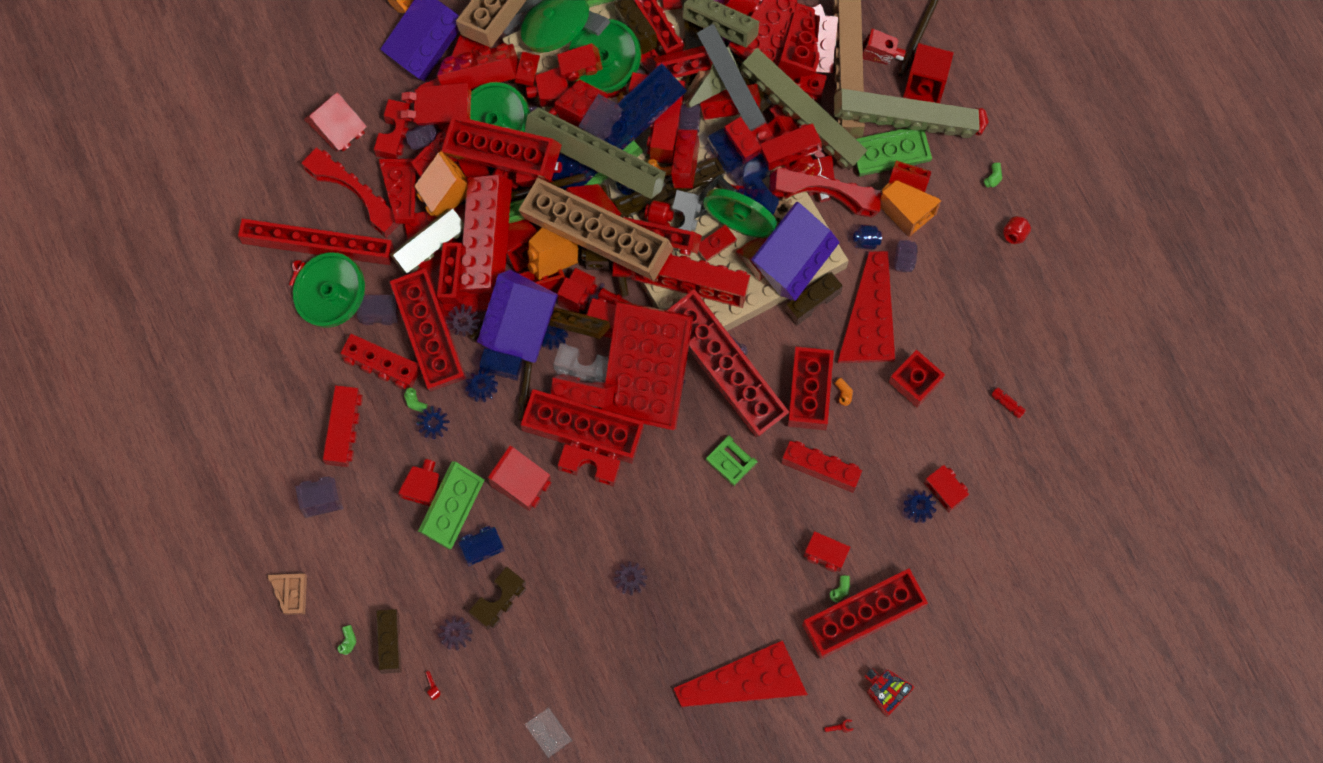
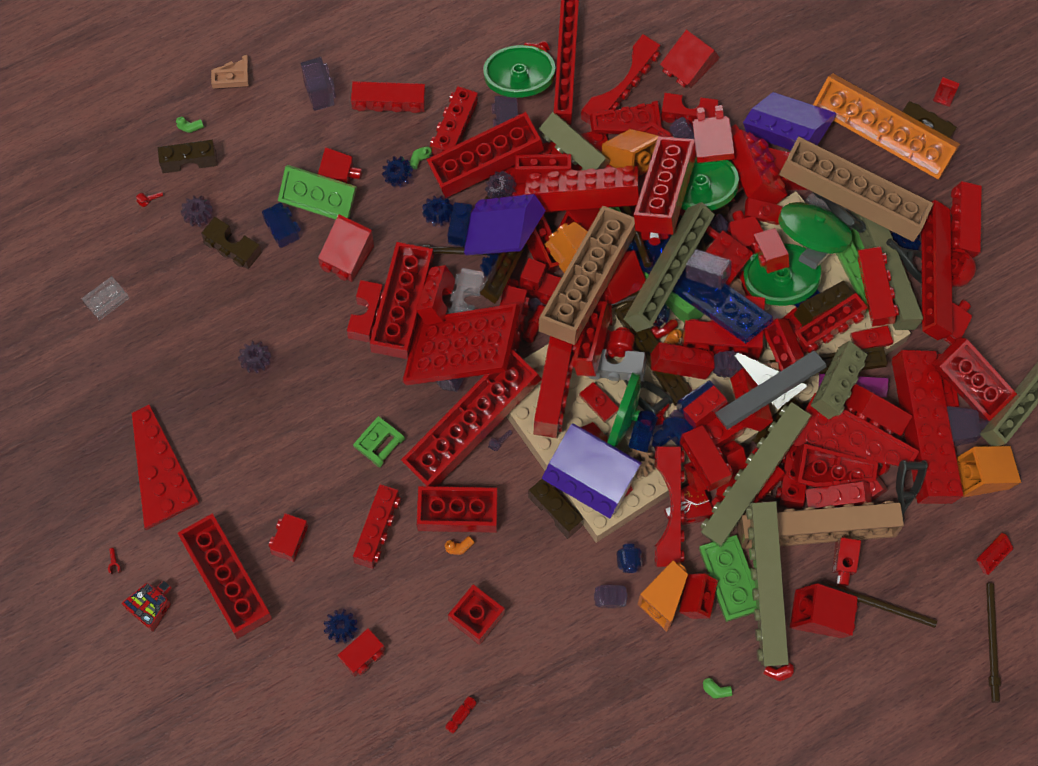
camera: 85 degrees right, 5 degrees down
(842, 591) = (250, 556): bright green arm -> none
(871, 322) = (537, 569): red wing -> none
(1017, 230) = (655, 714): red head -> none

